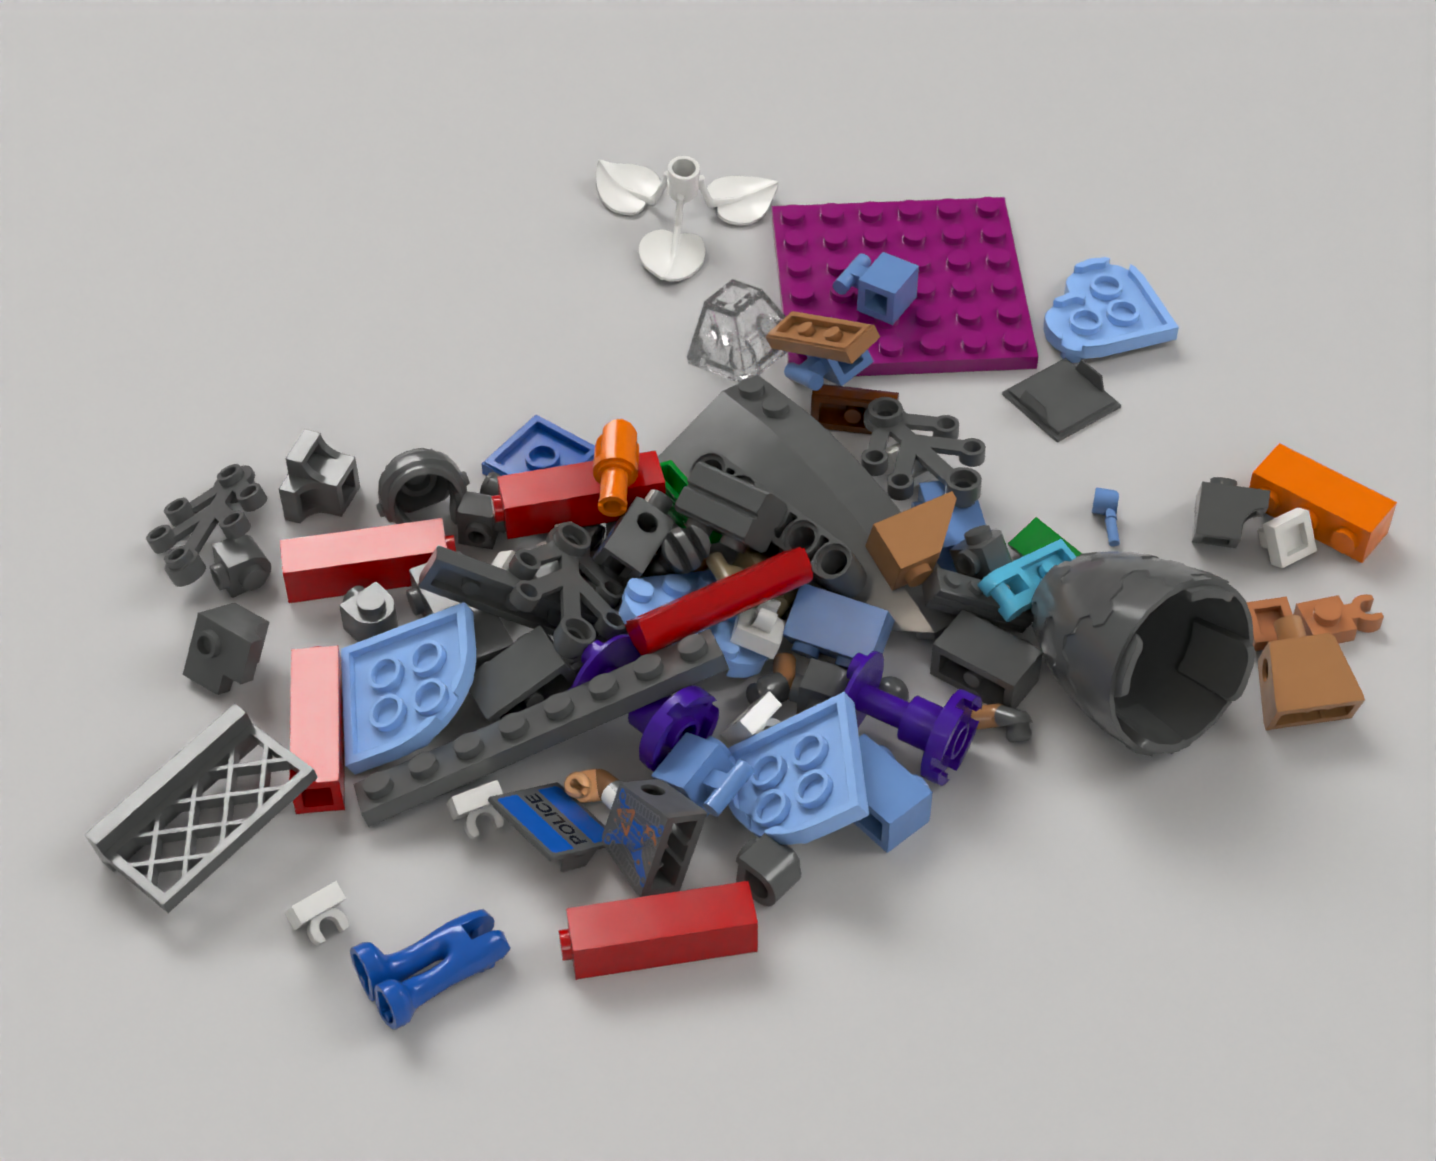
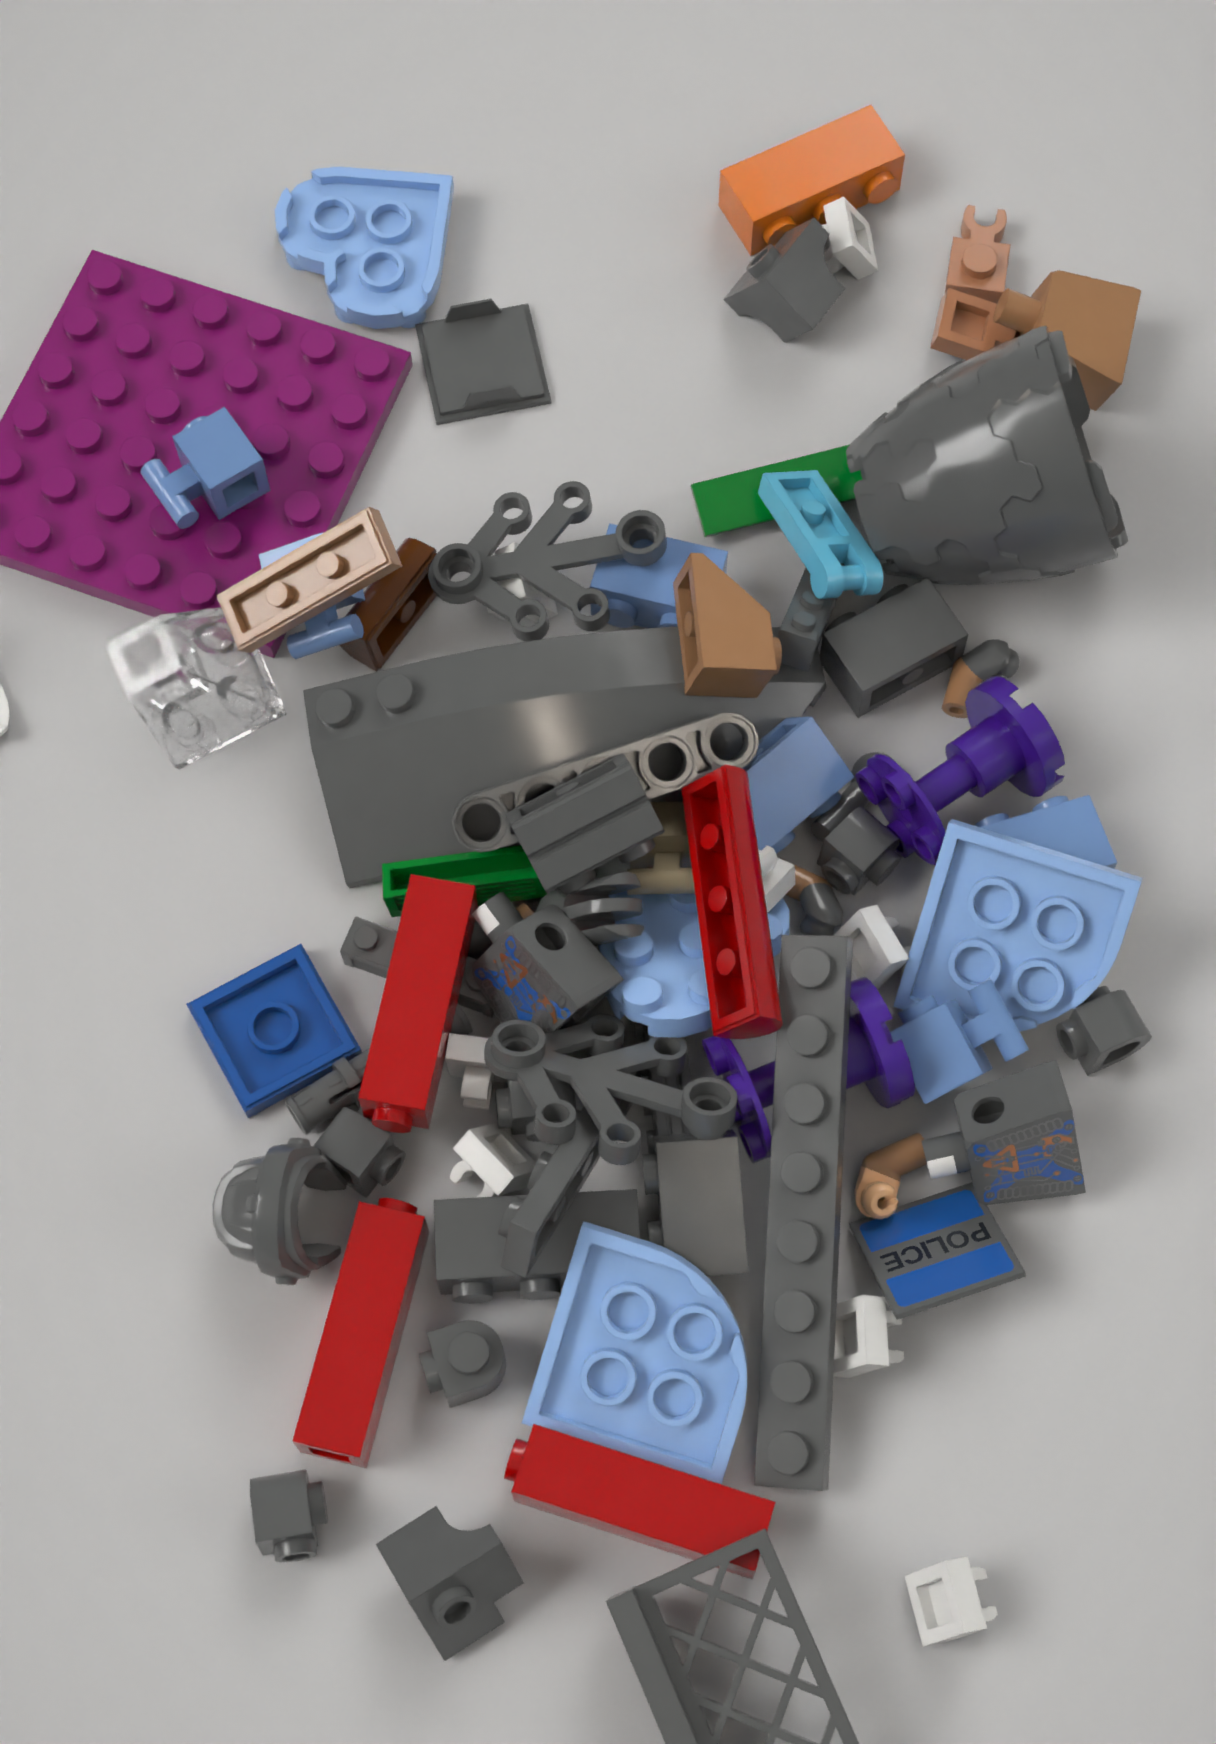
camera: 65 degrees left, 20 degrees up
(232, 485) = (173, 1530): dark grey plant -> none
(317, 479) = (175, 1347): dark grey brick -> none
(462, 944) = (1099, 1443): blue piece -> none
(615, 465) = (444, 935): orange arm -> none
(660, 930) = (1145, 1189): red brick -> none
(980, 552) = (759, 567): dark grey plate -> none
(1106, 503) = (696, 395): medium blue hand -> none

